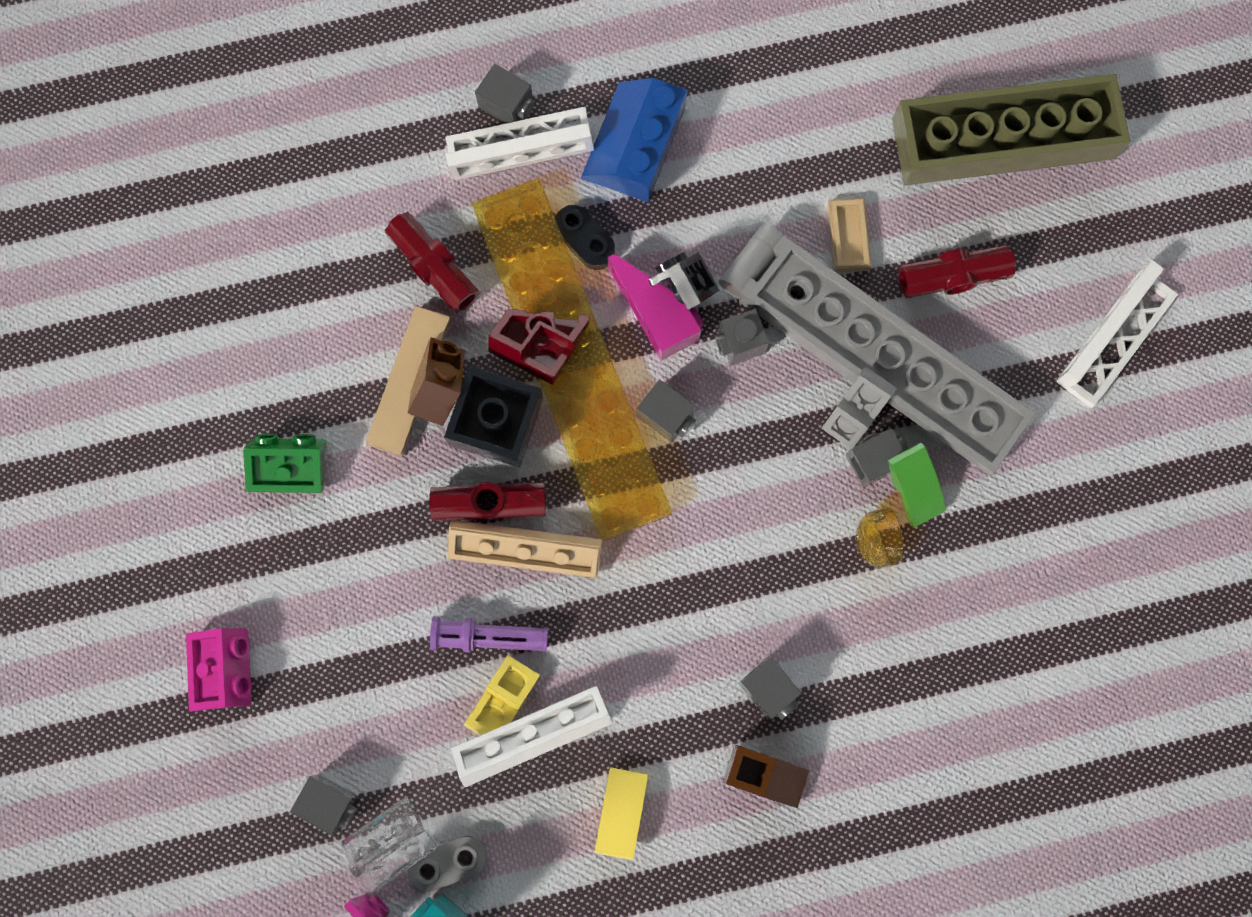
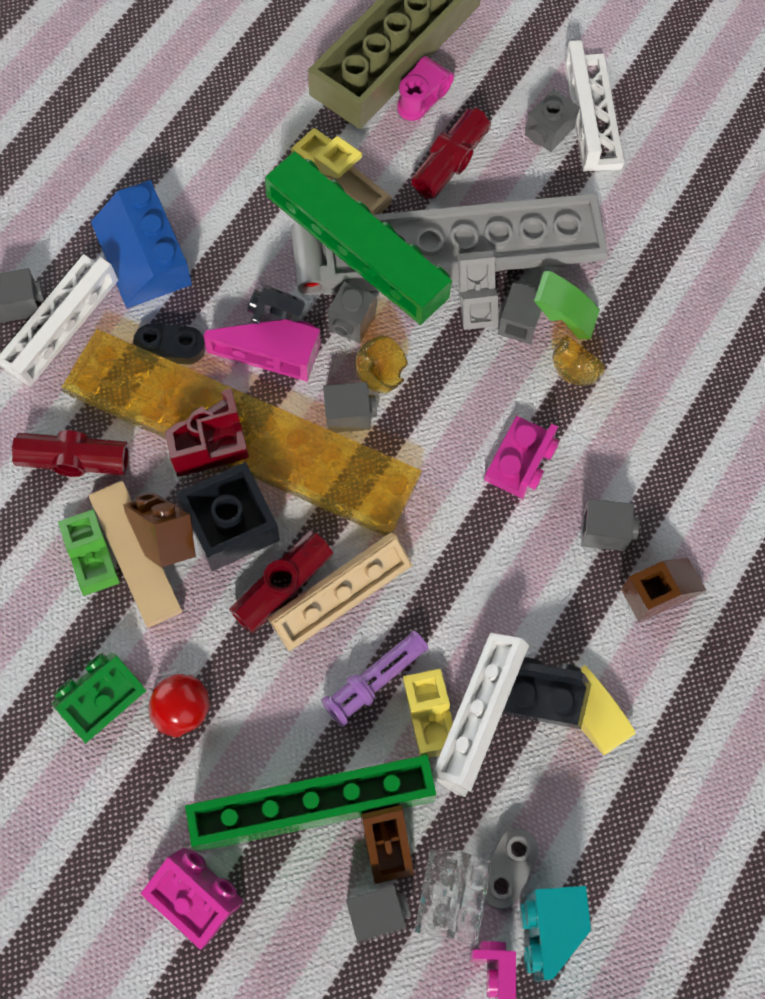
camera: 45 degrees left, 10 degrees down
(335, 523) = (178, 705): none -> red hair
(351, 685) = (309, 803): none -> green brick
(377, 350) = (88, 552): none -> bright green slope
(379, 763) = (387, 844): none -> reddish brown slope
(595, 773) = (549, 694): none -> black bracket
(722, 400) = (380, 364): none -> clear yellow hair
(762, 571) = (520, 457): none -> dark pink bracket
(798, 282) = (358, 237): none -> green brick
(852, 184) = (330, 156): none -> light yellow slope
(989, 194) = (423, 88): none -> dark pink piece
(1068, 316) = (551, 120): none -> dark grey brick

